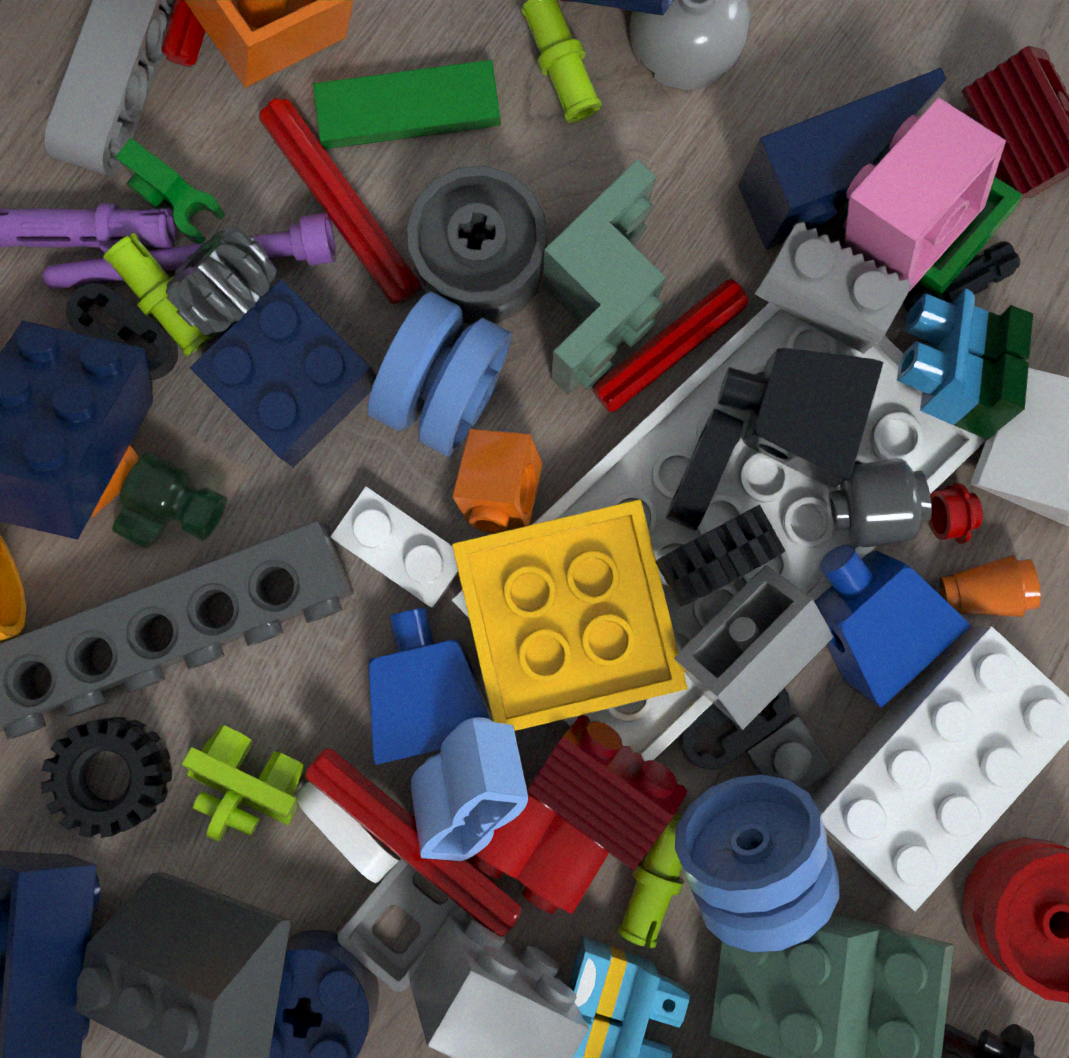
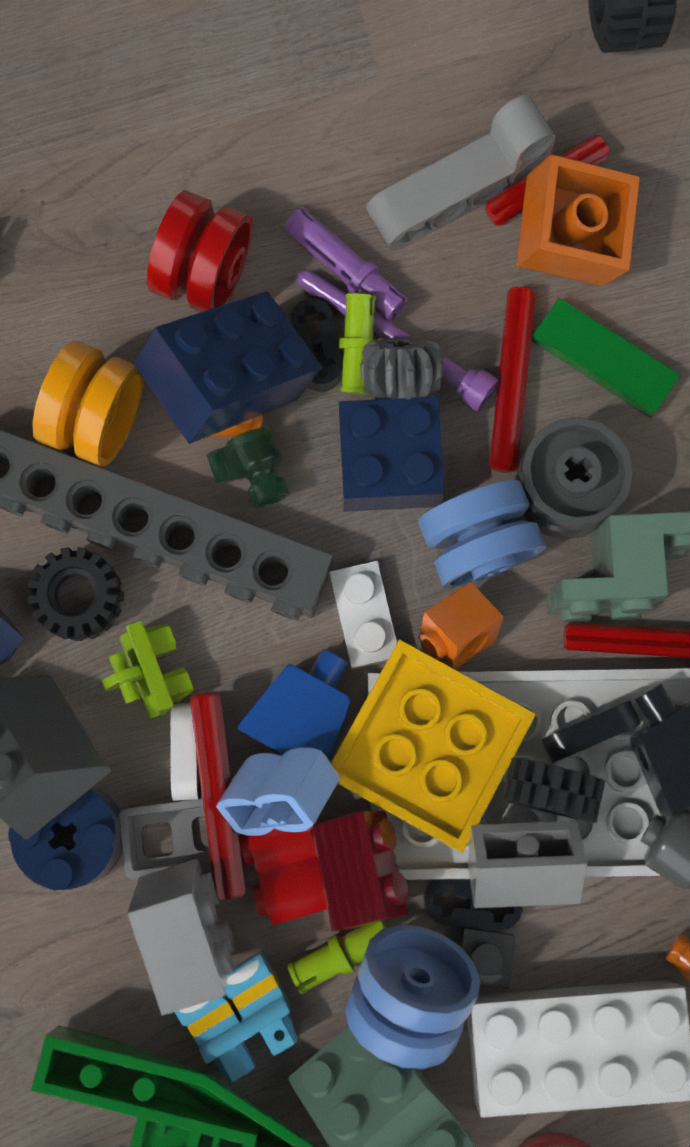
camera: 45 degrees right, 5 degrees down
(158, 182) = (415, 276): green plate -> none
(883, 621) = (619, 924): blue torso -> none

